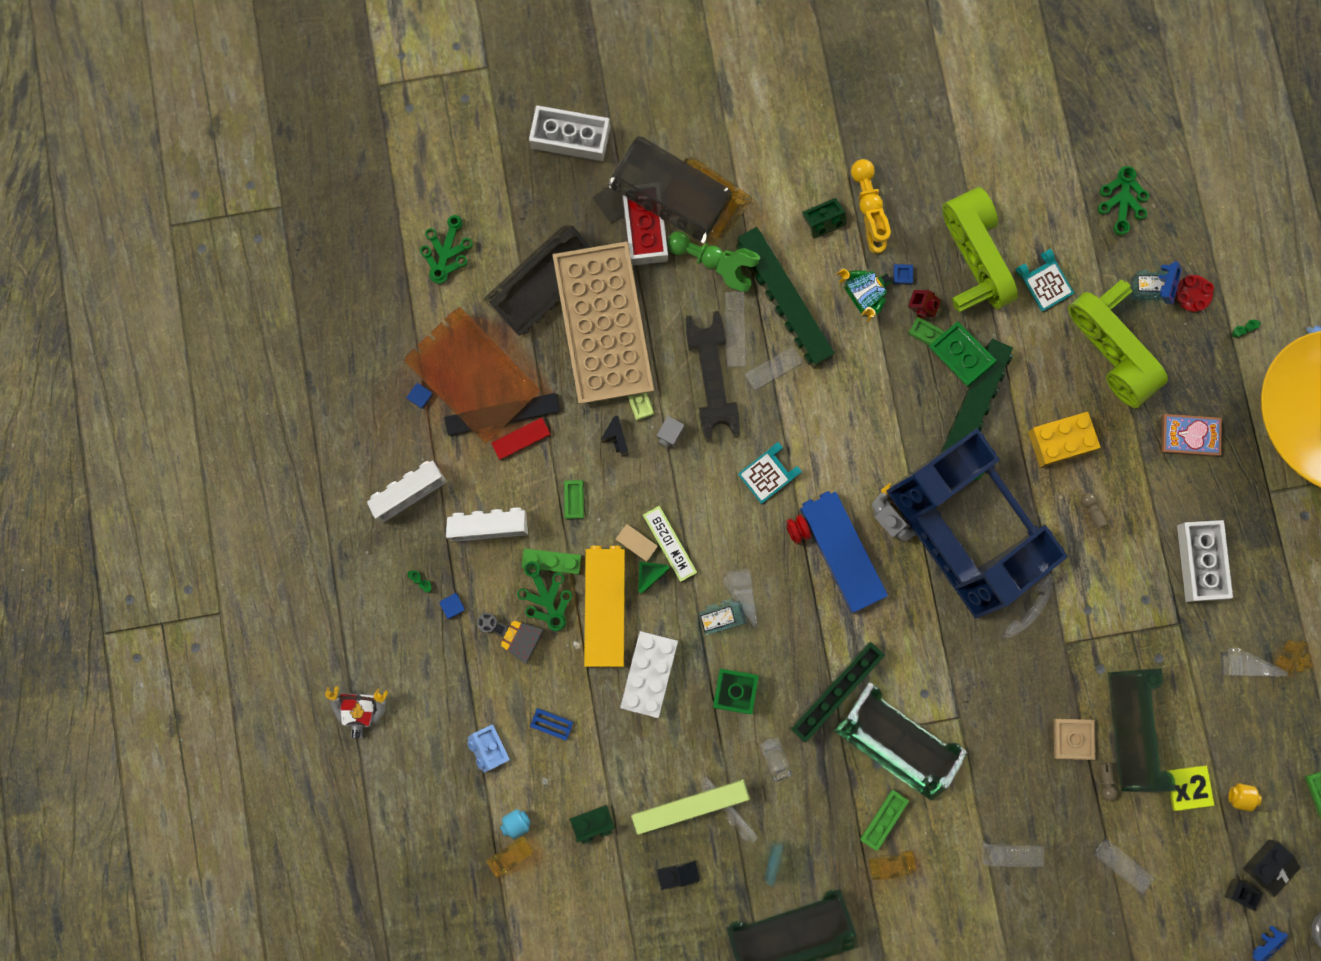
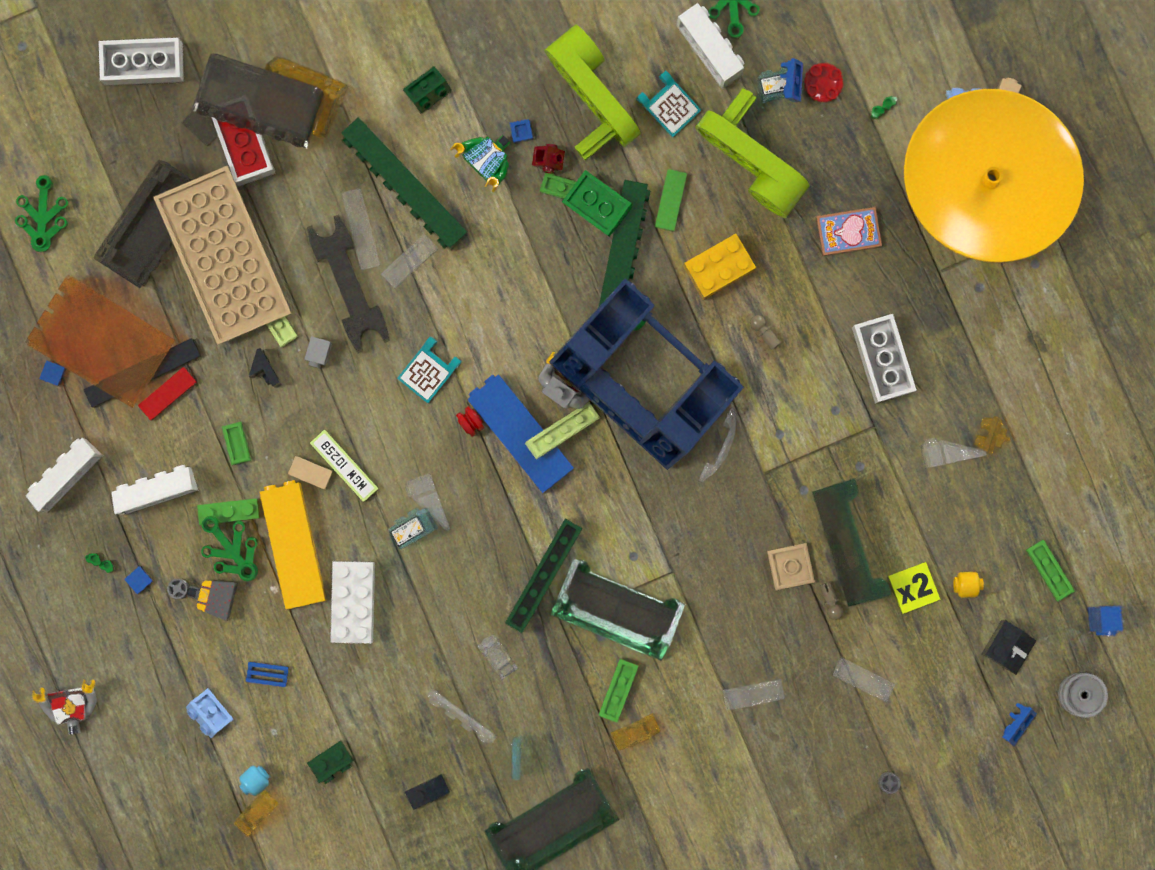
camera: 15 degrees left, 5 degrees up
(649, 574) = (330, 502): green slope -> none
(690, 807) = (423, 722): yellowish green tile -> none
(712, 257) = (335, 163): bright green piece -> none
(735, 691) = (442, 598): green brick -> none
(871, 206) = (471, 66): yellow piece -> none
(884, 558) = (562, 430): none -> yellowish green tile
(1029, 368) = (670, 200): none -> bright green tile
(1097, 235) = (710, 45): none -> white brick
(1243, 894) = (985, 679): black slope -> none

